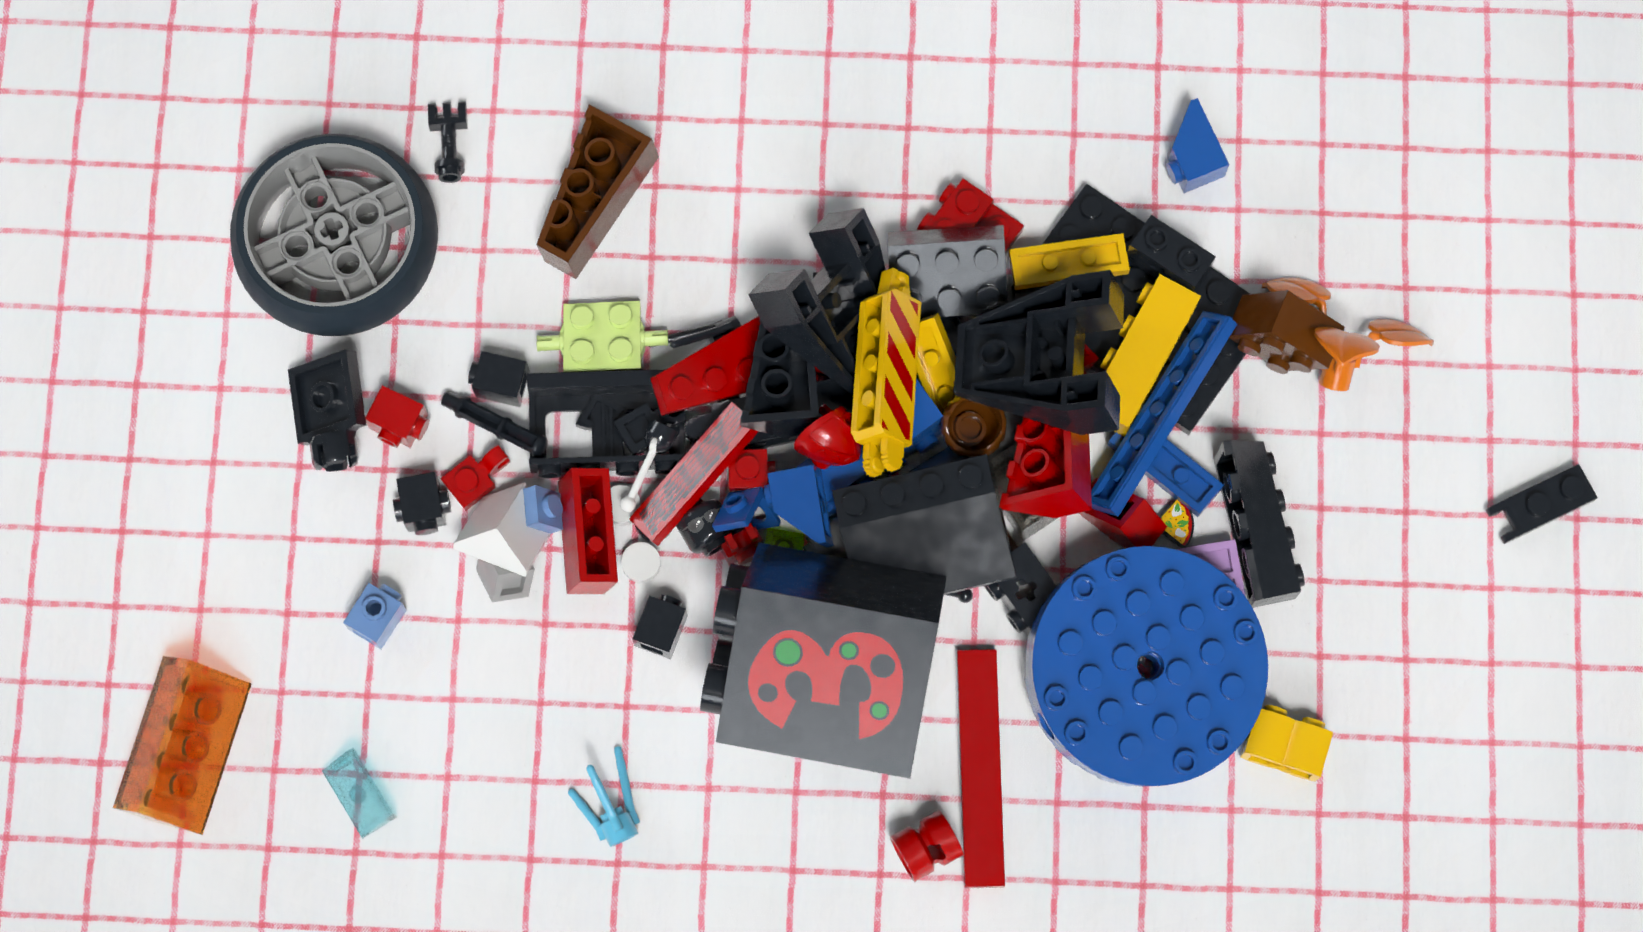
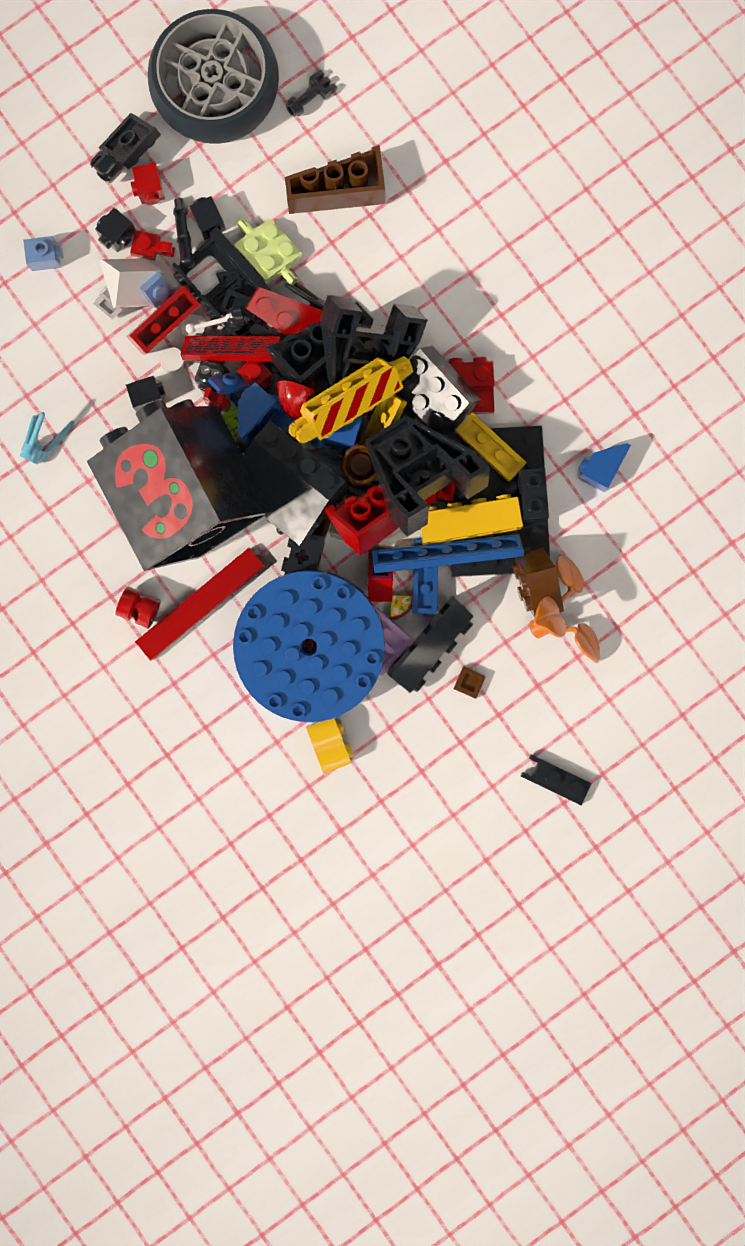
camera: 50 degrees right, 10 degrees up
(1338, 515) = (469, 682): none -> reddish brown tile

